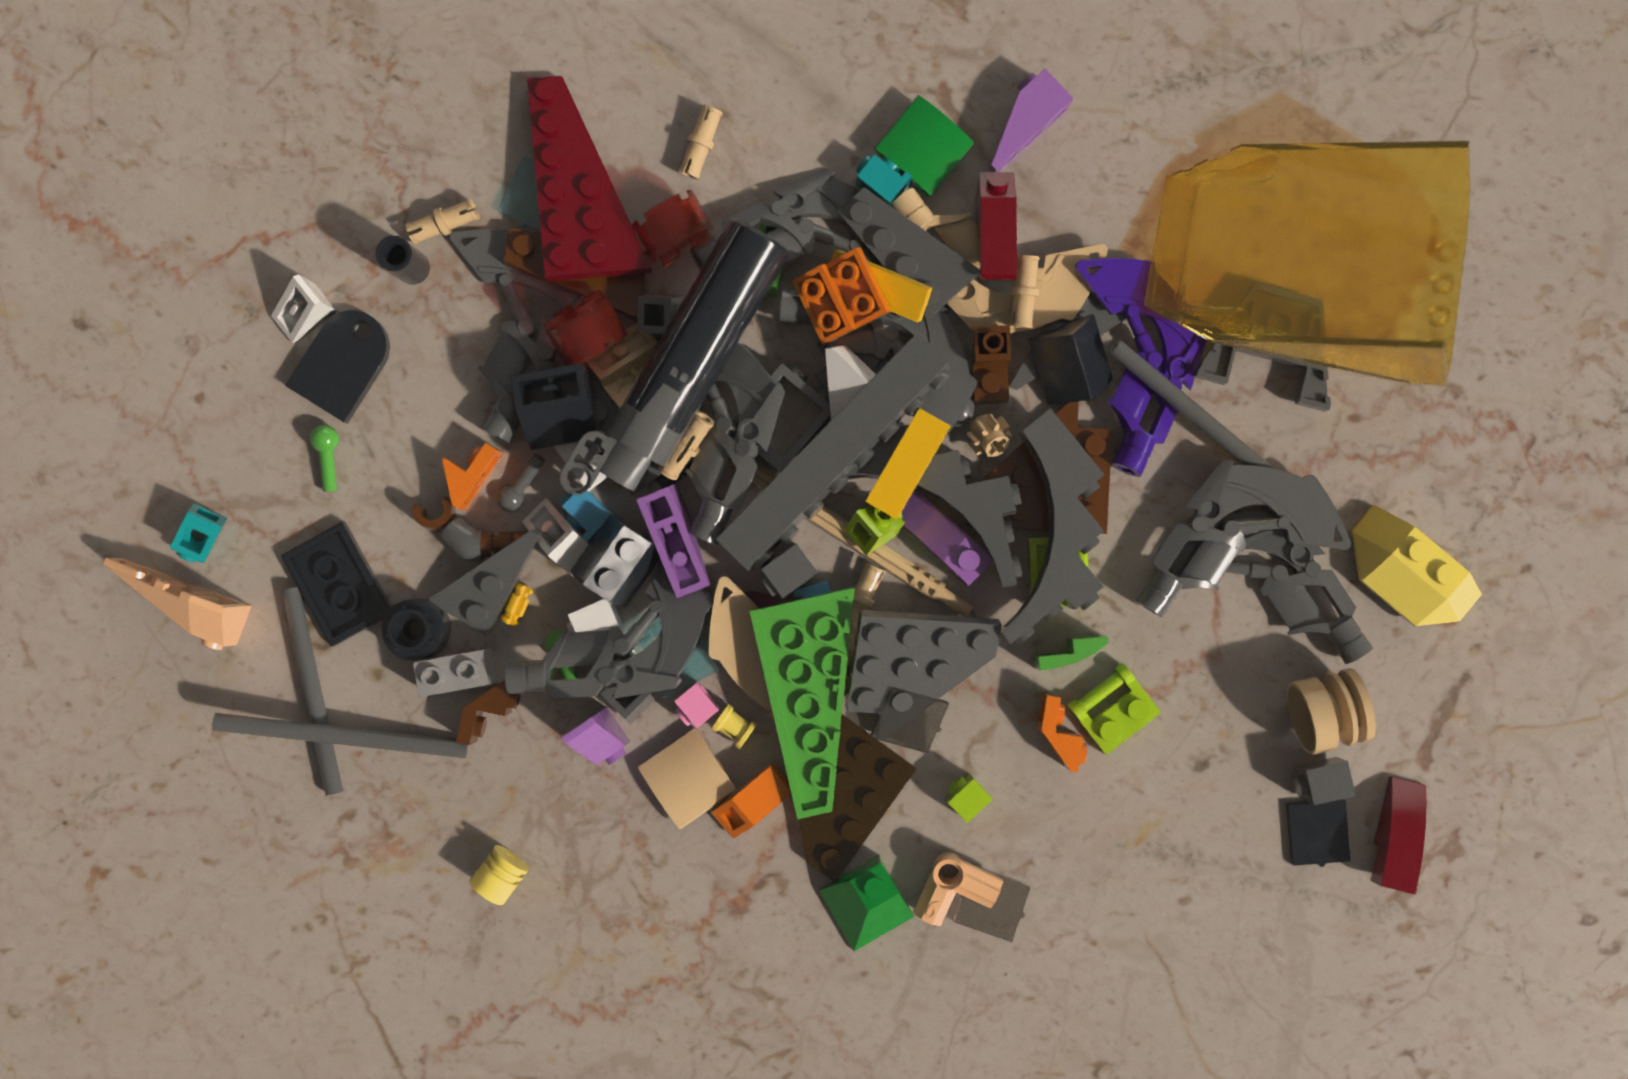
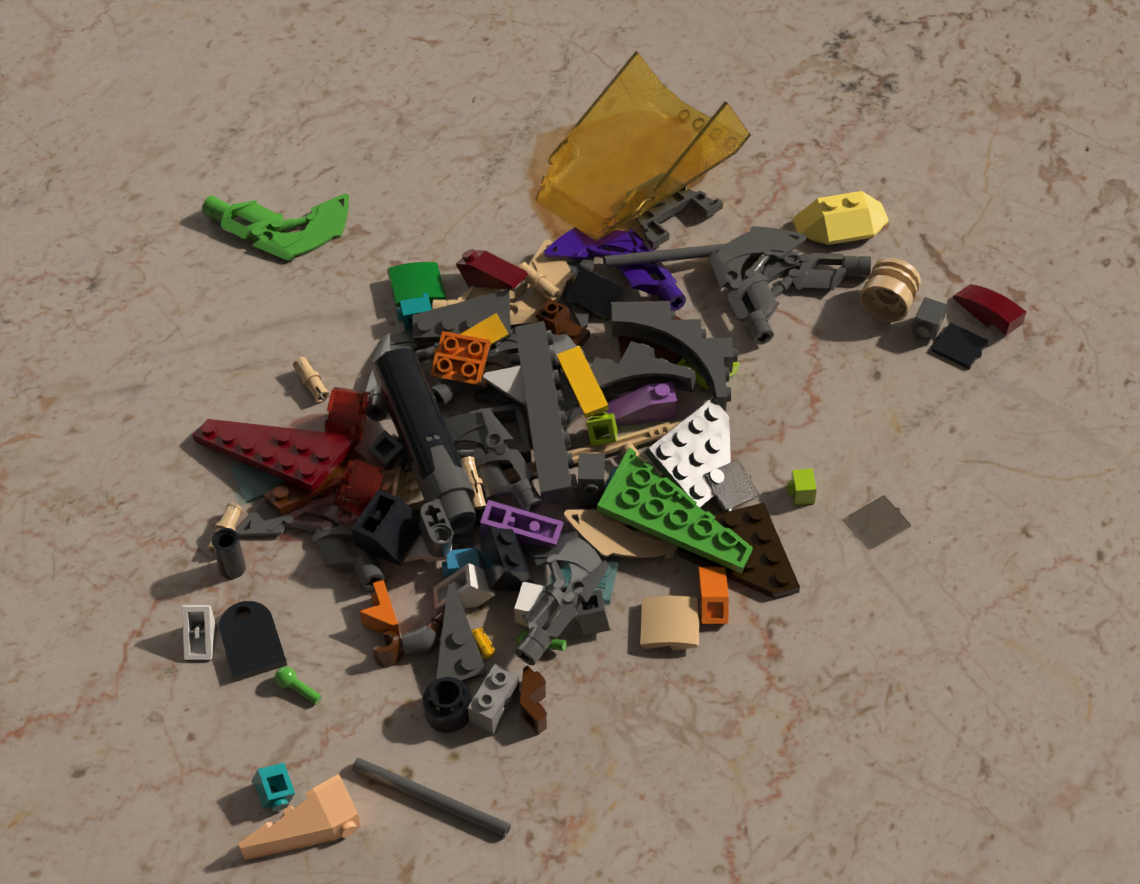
camera: 50 degrees left, 35 degrees down
(337, 584) = (378, 735): black tile -> none
(338, 735) = (474, 792): dark grey piece -> none
(499, 875) = (643, 762): light yellow piece -> none
(511, 496) = (415, 605): dark grey bar -> none
(598, 738) = (603, 639): medium lavender slope -> none
(696, 705) = (628, 585): bright pink plate -> none
(734, 726) = (659, 576): light yellow bush -> none
(866, 903) = (826, 578): green slope -> none
(940, 891) = (848, 534): light nougat piece -> none
(989, 435) = (600, 347): tan gear -> none
(1035, 109) = (446, 231): medium lavender slope -> none
(1066, 745) = (808, 424): orange slope -> none
(1078, 649) = (756, 389): bright green slope -> none
(1121, 717) = (817, 392): lime plate -> none

